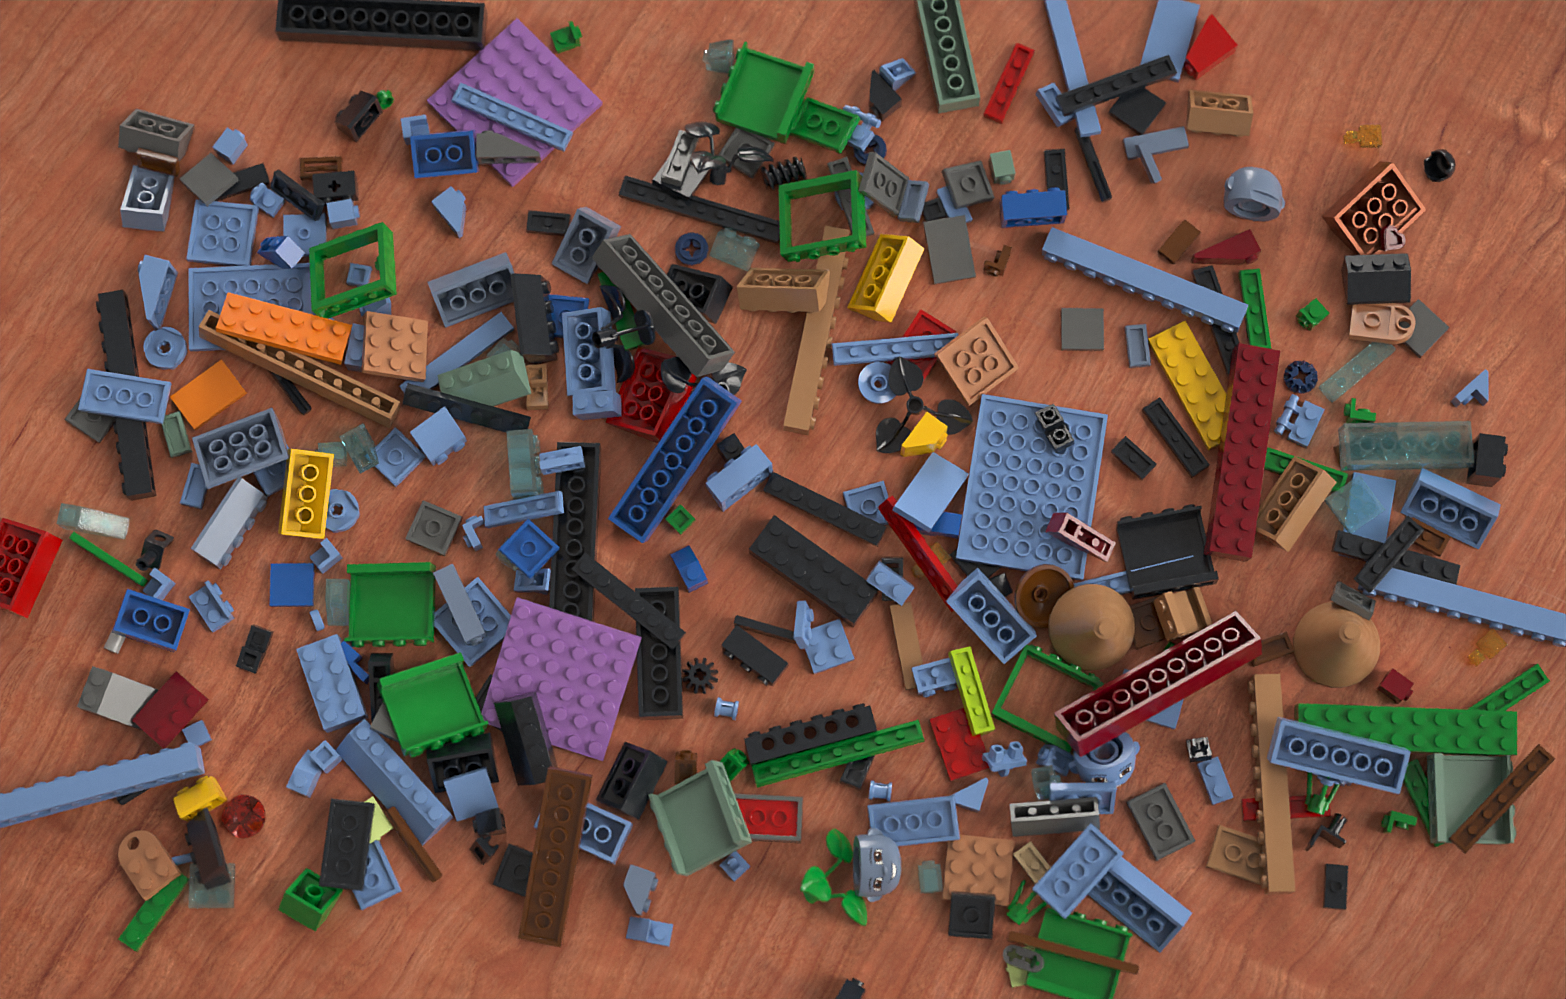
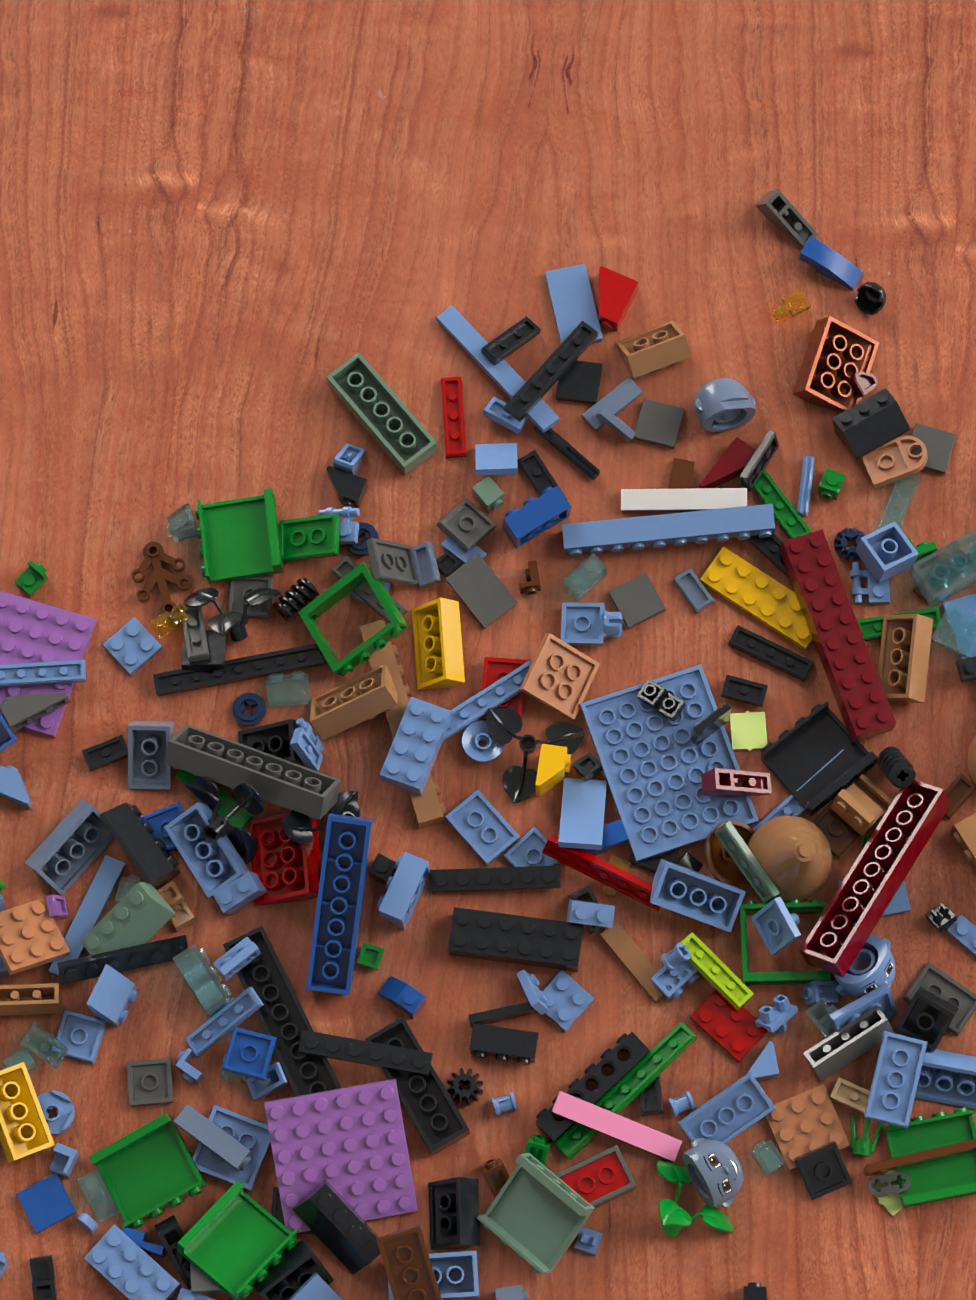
camera: 25 degrees left, 5 degrees down
(435, 334) = (57, 906): none -> medium lavender tile
(621, 141) = (132, 646): none -> medium blue plate
(661, 136) = (168, 622): none -> clear yellow plate
(676, 92) = (159, 574): none -> reddish brown plant
(723, 306) = (307, 745): none -> medium blue plate
(812, 780) = (616, 1126): none -> bright pink tile
(816, 356) = (416, 746): none -> medium blue brick
(838, 458) = (482, 827): none -> medium blue plate
(943, 660) = (675, 956): none -> medium blue bush
(958, 453) = (587, 766): none -> black plate
(1025, 139) = (496, 459): none -> medium blue tile
(1028, 327) = (589, 624): none -> medium blue plate
(1046, 284) = (584, 577): none -> clear light blue brick
(1047, 680) = (776, 925): none -> medium blue tile
(1051, 610) = (746, 862): none -> sand green tile
(1086, 472) = (711, 724): none -> black tile
(1096, 40) = (511, 340): none -> black tile
(1118, 495) = (748, 730): none -> yellowish green piece
(1136, 832) = (927, 1018): none -> black brick
(1172, 260) = (682, 499): none -> white tile
(1187, 181) = (659, 423): none -> dark grey tile
(1230, 596) = (896, 767): none -> black piece
(1258, 260) = (759, 460): none -> black tile
(1288, 304) = (805, 485): none -> medium blue axle
(1327, 400) = (886, 552): none -> medium blue brick
(1403, 55) = (786, 217): none -> dark grey slope
(1420, 116) = (830, 263): none -> blue slope

